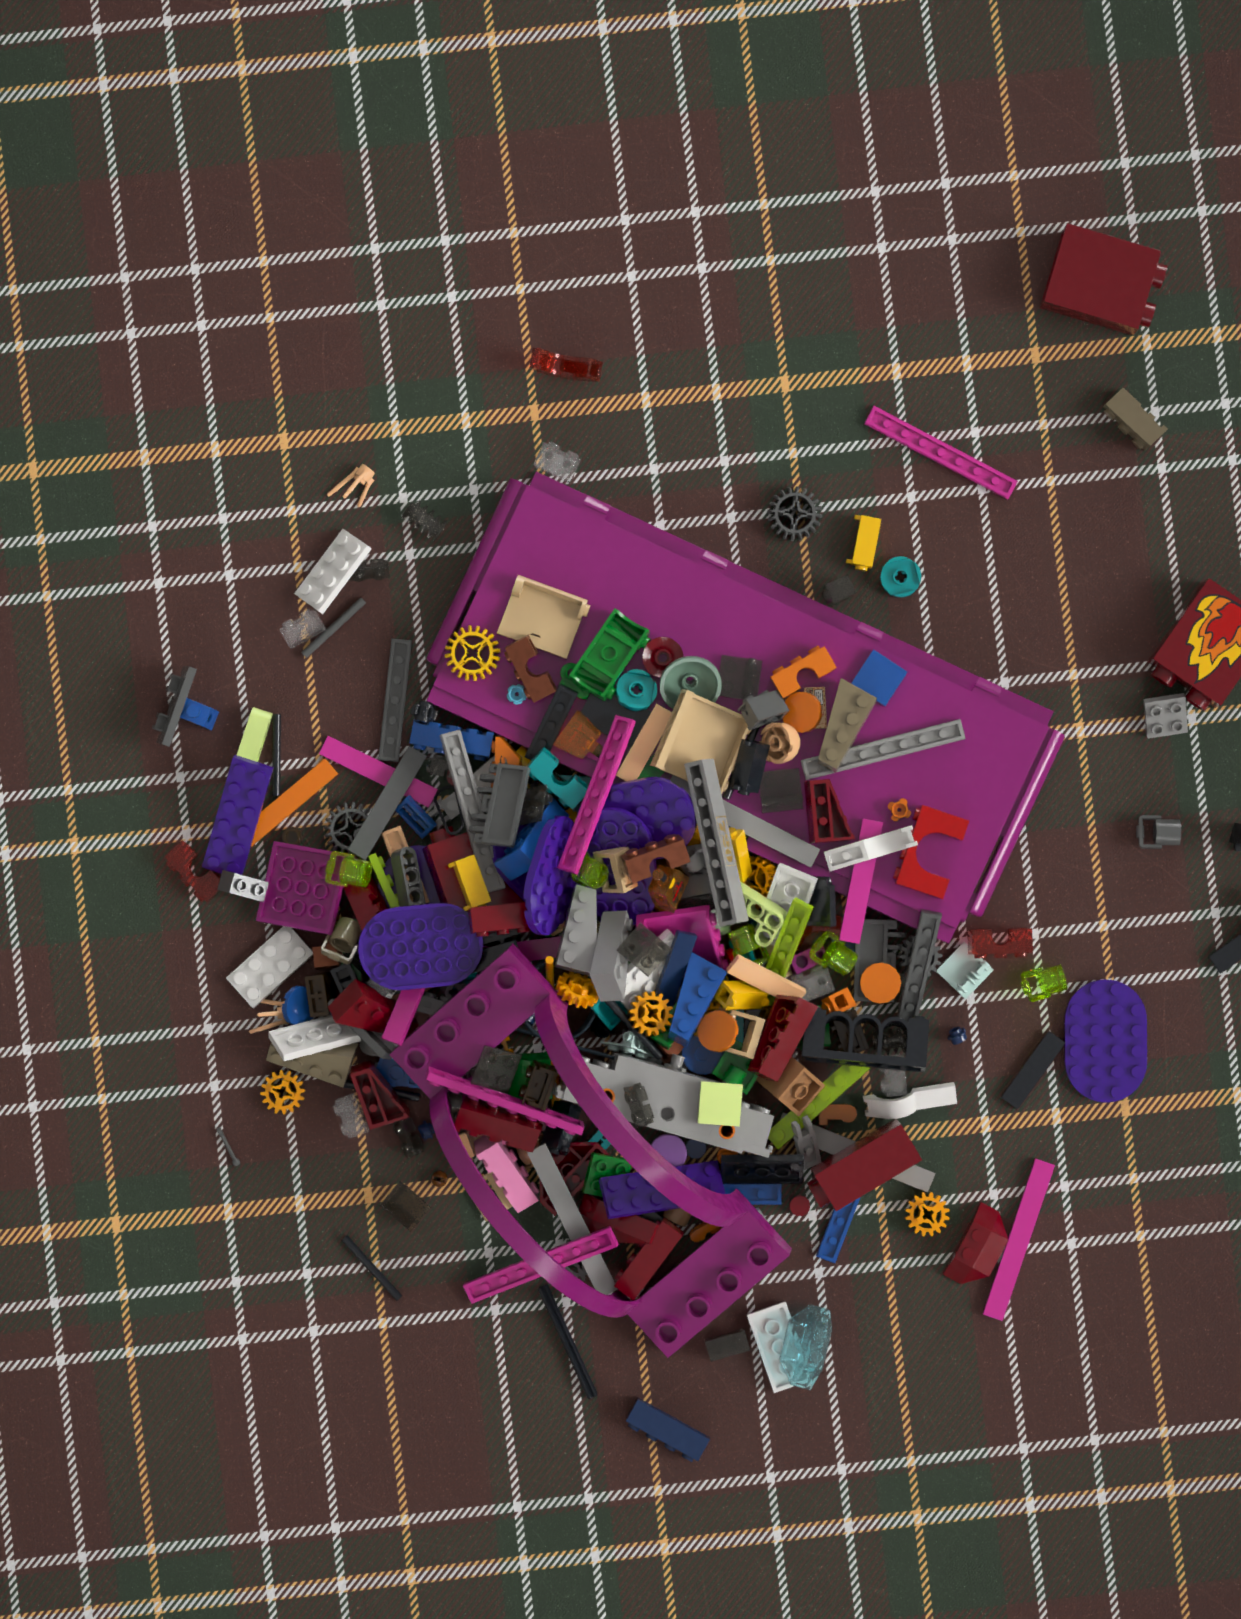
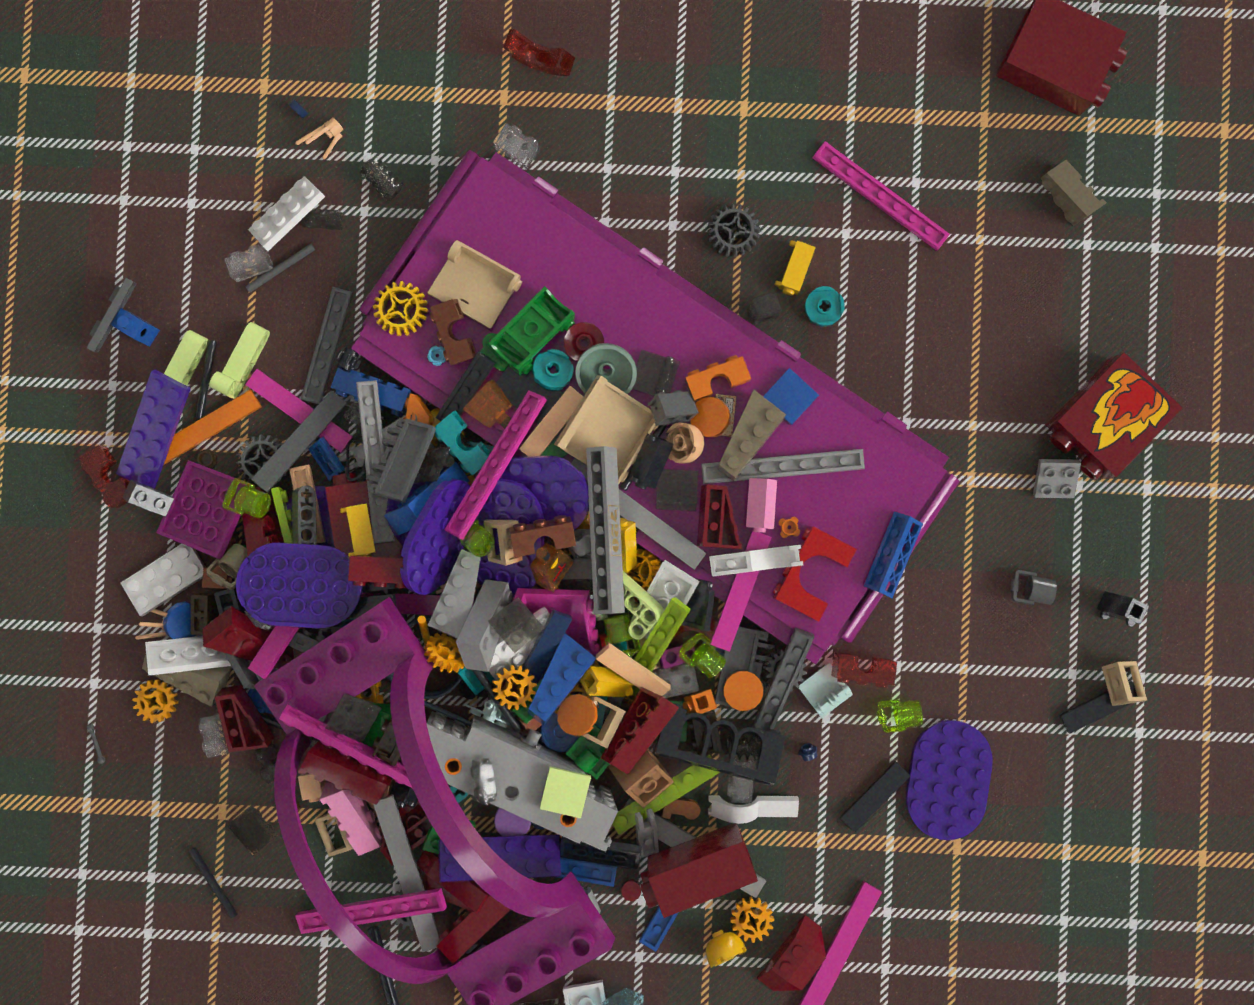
camera: 10 degrees right, 0 degrees up
(311, 730) = (241, 361): none -> yellowish green beam
(325, 460) = (298, 108): none -> dark blue tile
(867, 791) = (761, 504): none -> bright pink brick
(903, 1246) = (723, 947): none -> yellow cylinder
(1005, 818) = (891, 552): none -> blue fence

